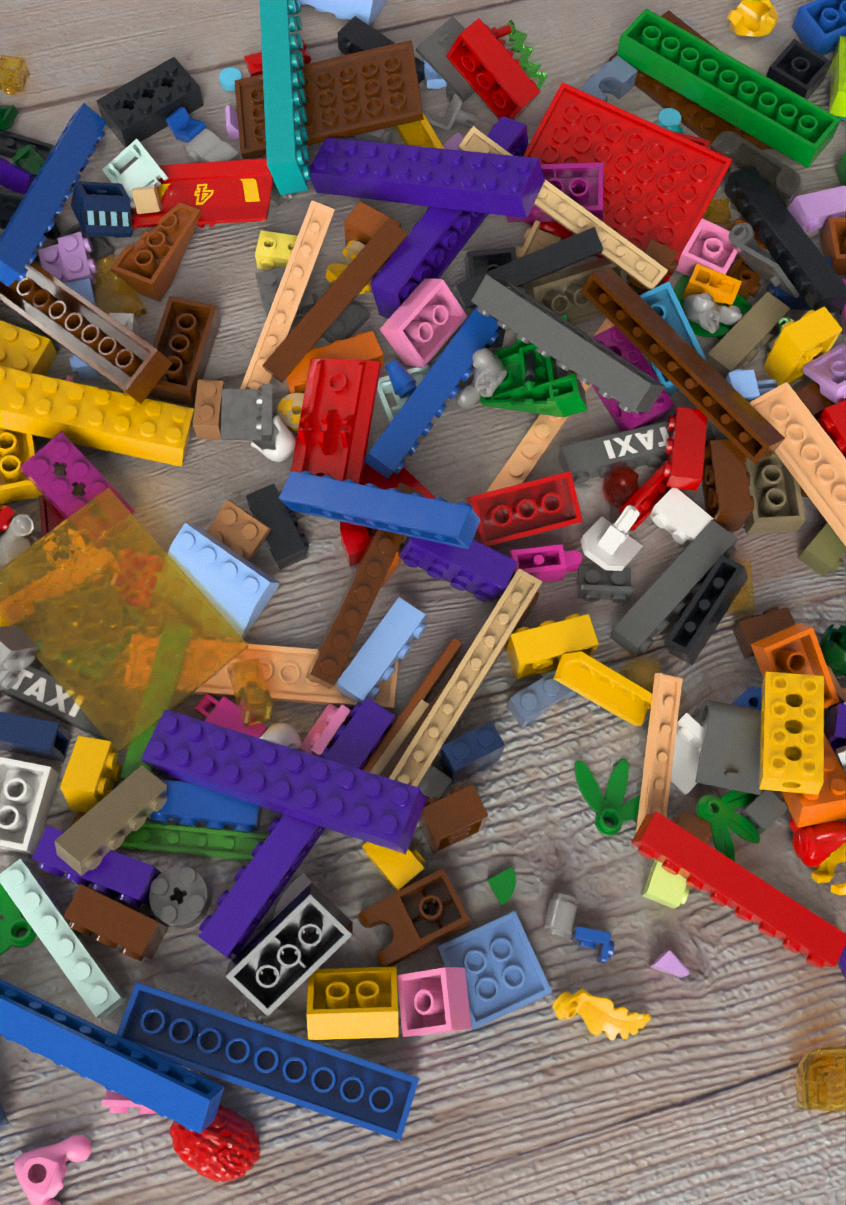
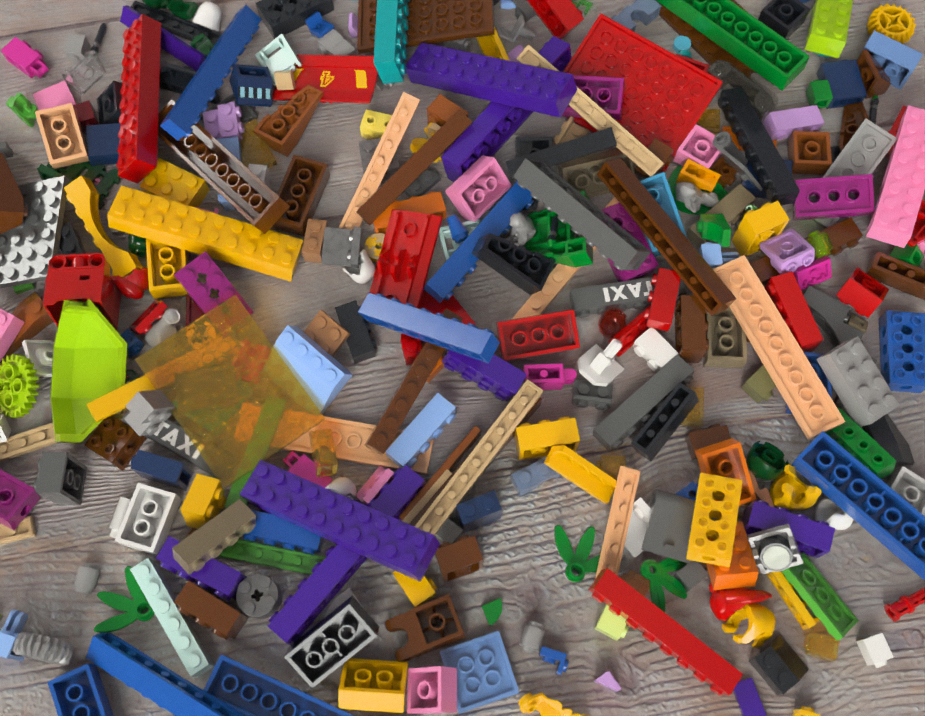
camera: 10 degrees right, 0 degrees up
(34, 122) = (209, 16): none -> white hair
(482, 415) = (514, 262): none -> black wedge
(744, 350) = (714, 228): none -> green arch

